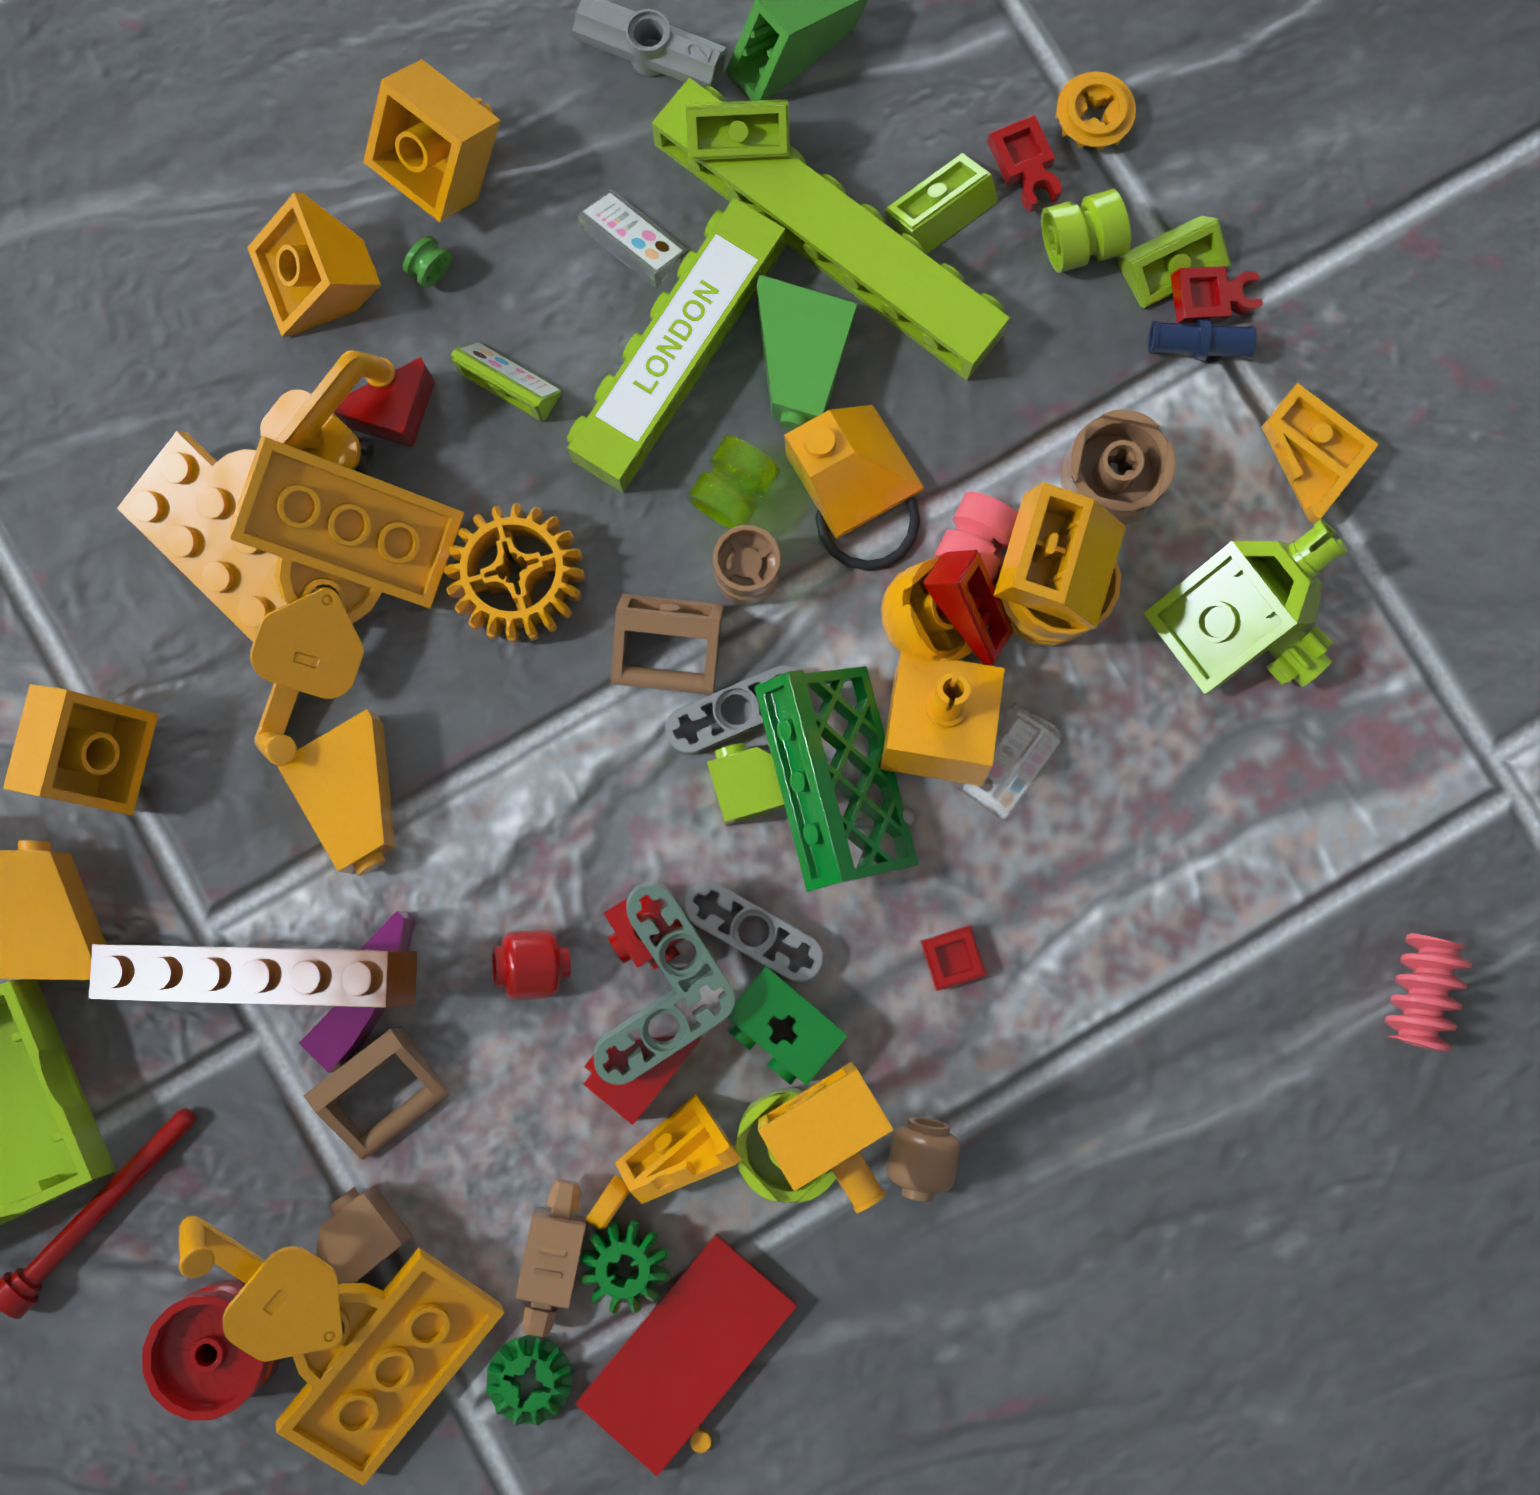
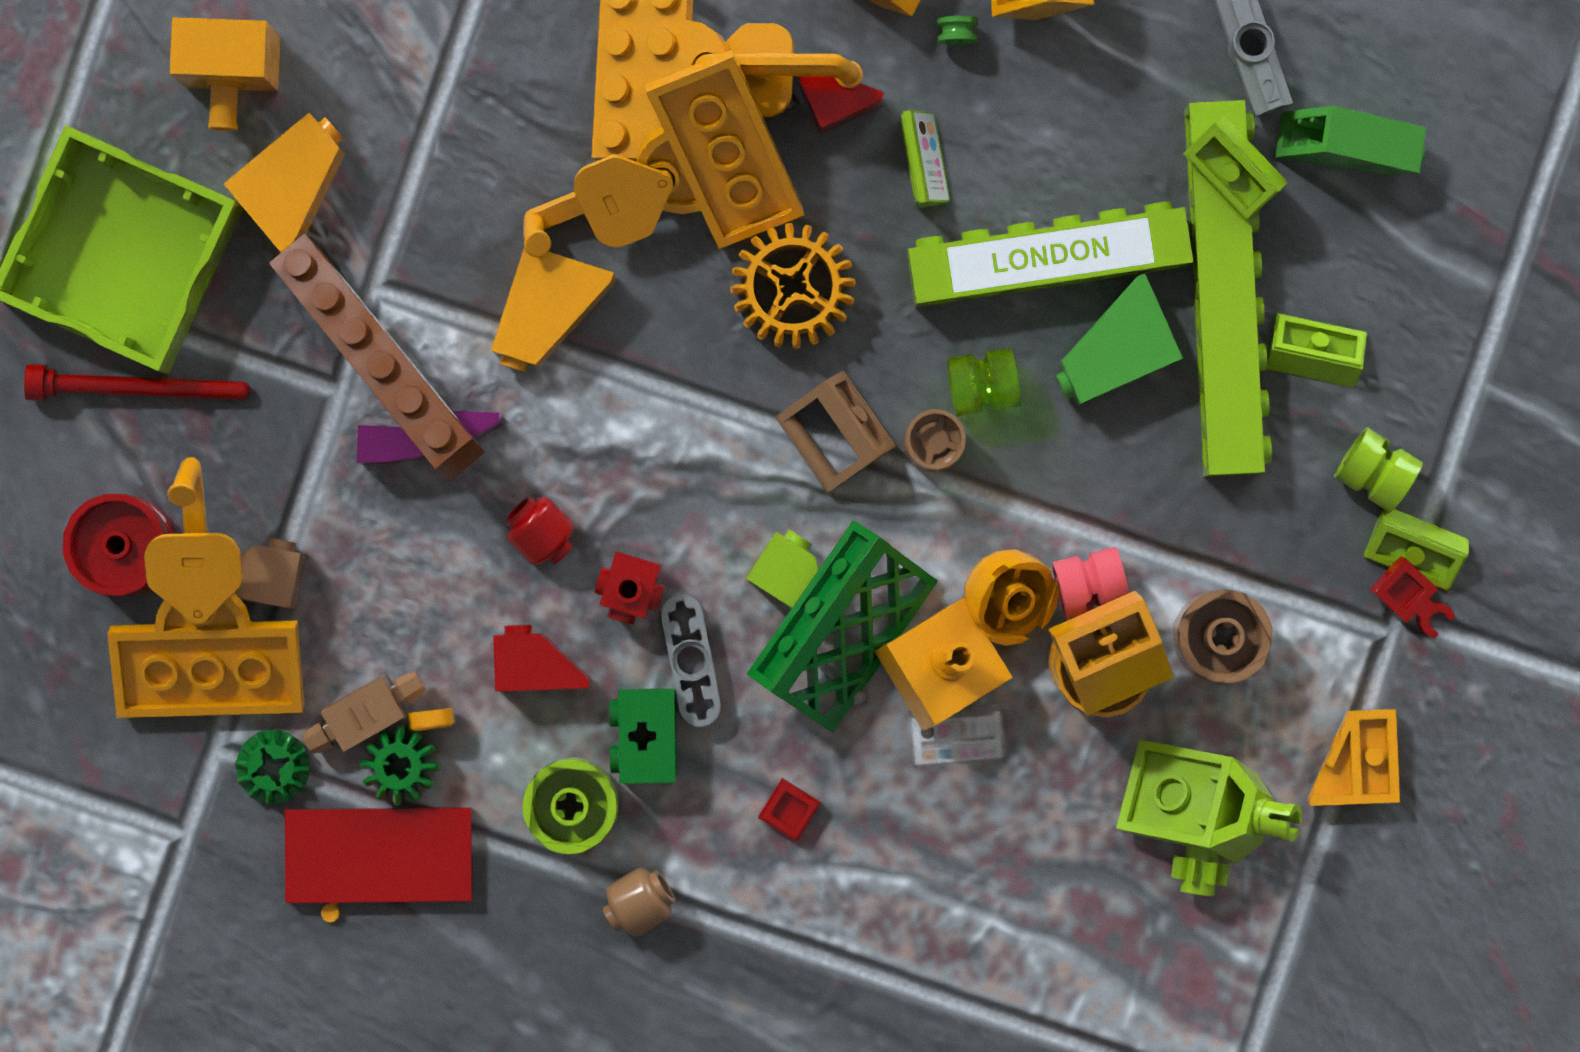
camera: 50 degrees right, 5 degrees up
(80, 749) = (421, 108): light orange brick -> none
(327, 1093) = (374, 478): medium nougat tile -> none
(632, 237) = (1101, 155): slope -> none
(677, 1153) = (502, 736): light orange wing -> none
(685, 983) = (617, 645): sand green beam -> none
(717, 699) = (803, 494): light grey beam -> none
(826, 1132) = (601, 820): light orange brick -> none
(850, 466) = (1068, 452): light orange slope -> none
(875, 563) = (1037, 451): black piece -> none
(967, 599) = (1036, 590): red slope -> none
(1024, 156) = (1400, 378): red plate -> none
(1096, 90) = (1496, 388): light orange gear -> none
(1202, 340) = (1372, 617): dark blue pin -> none

